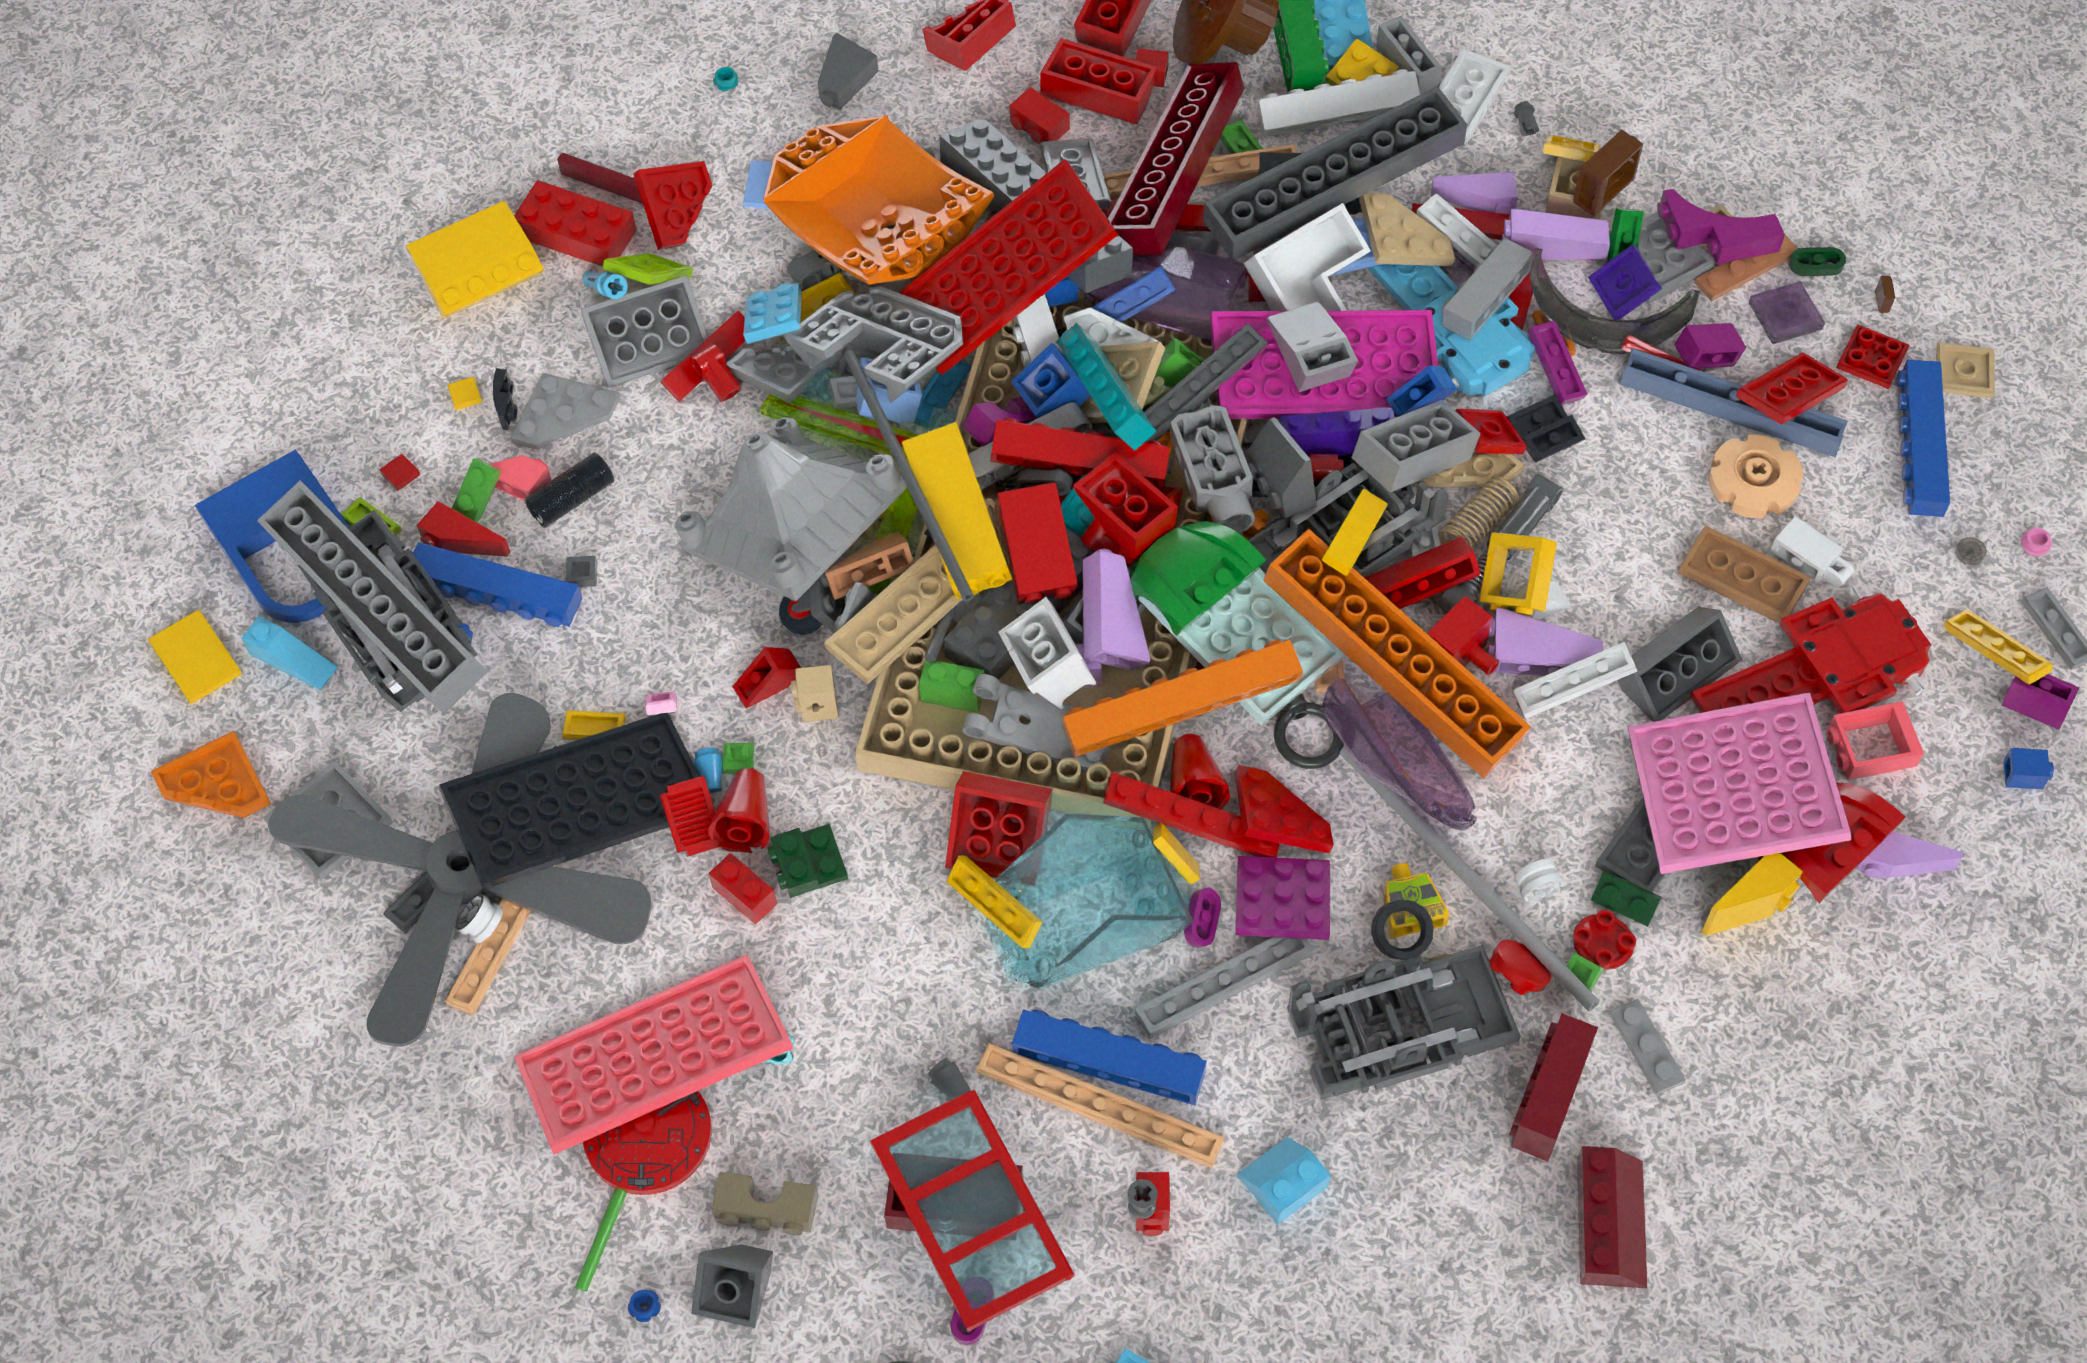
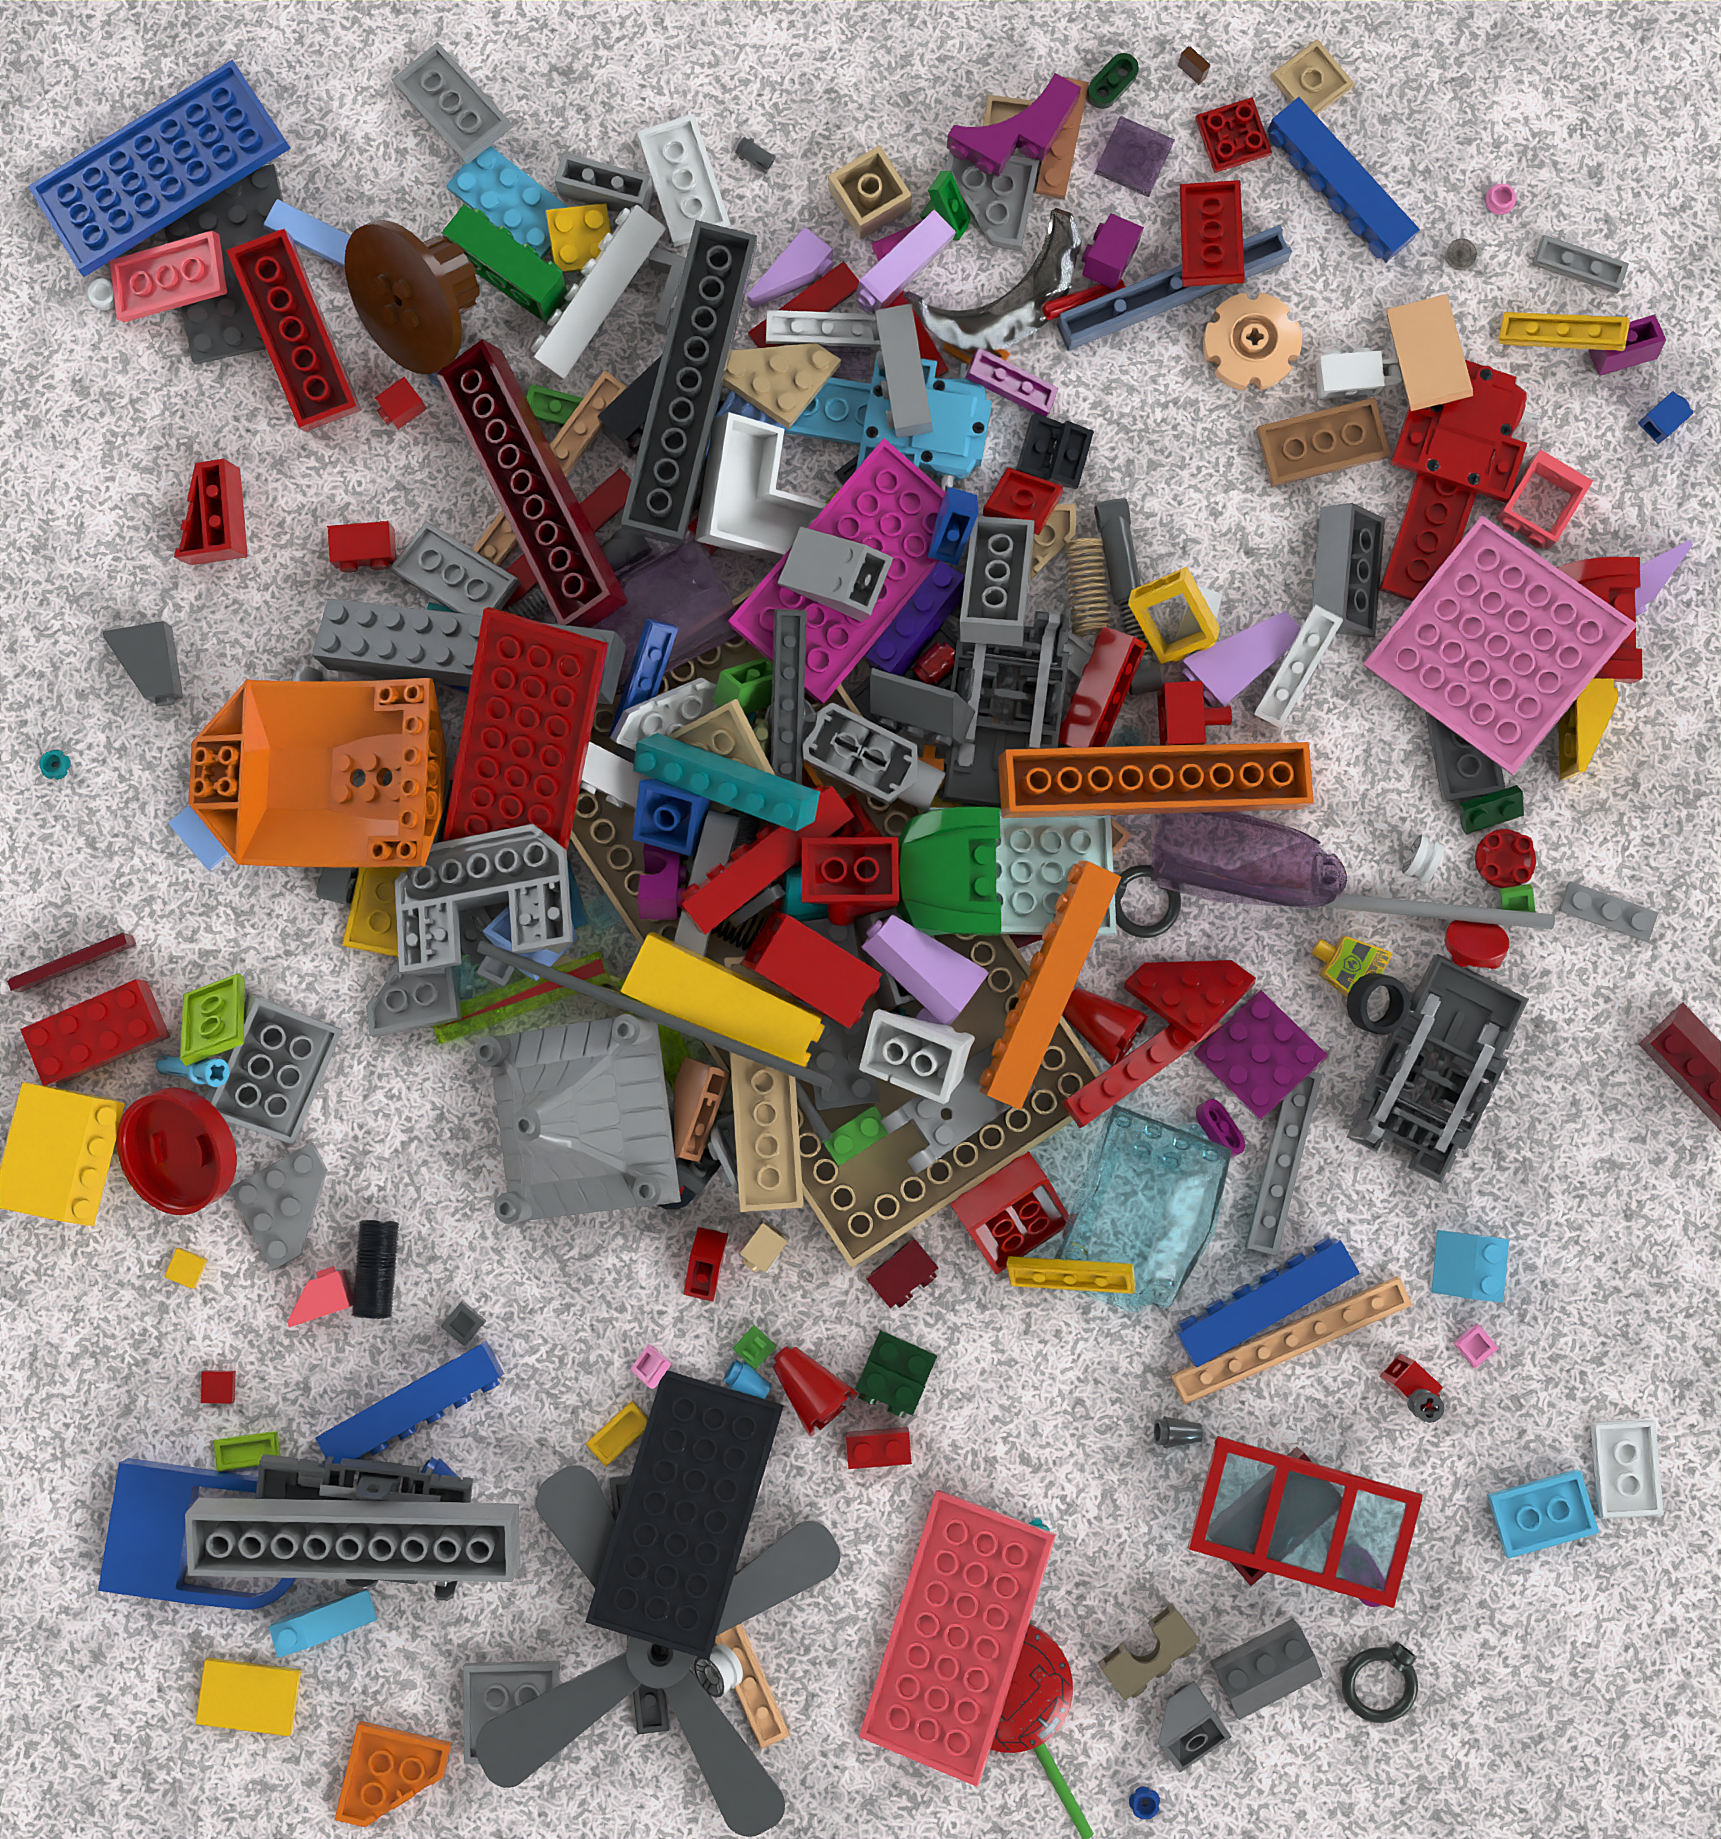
camera: 50 degrees left, 25 degrees up
(457, 533) = (322, 1397): red slope -> none
(476, 489) = (303, 1345): bright green plate -> none
(502, 398) = (234, 1251): black slope -> none
(540, 316) = (176, 1151): none -> red brick
(671, 198) = (152, 929): red plate -> none
(689, 815) = (778, 1434): red window -> none
(712, 367) = (364, 1051): red piece -> none
(726, 338) = (344, 1039): red tile -> none
(772, 312) = (359, 955): medium azure plate -> none
(831, 1302) = (1267, 1668): none -> dark grey slope
(884, 801) = (903, 1273): none -> dark red brick
(1098, 81) = (374, 461): red slope -> none
(1176, 853) = (1158, 1103): yellow tile -> none
(1229, 1240) = (1475, 1345): none -> bright pink tile
(1354, 532) = (1036, 713): yellow tile -> none
(1552, 1086) = (1589, 1016): dark red brick -> none
(1570, 148) = (831, 158): yellow tile -> none
(1607, 172) = (899, 164): reddish brown window -> none
(1625, 282) = (992, 251): dark purple plate -> none
(1877, 576) = (1429, 352): none -> light nougat tile

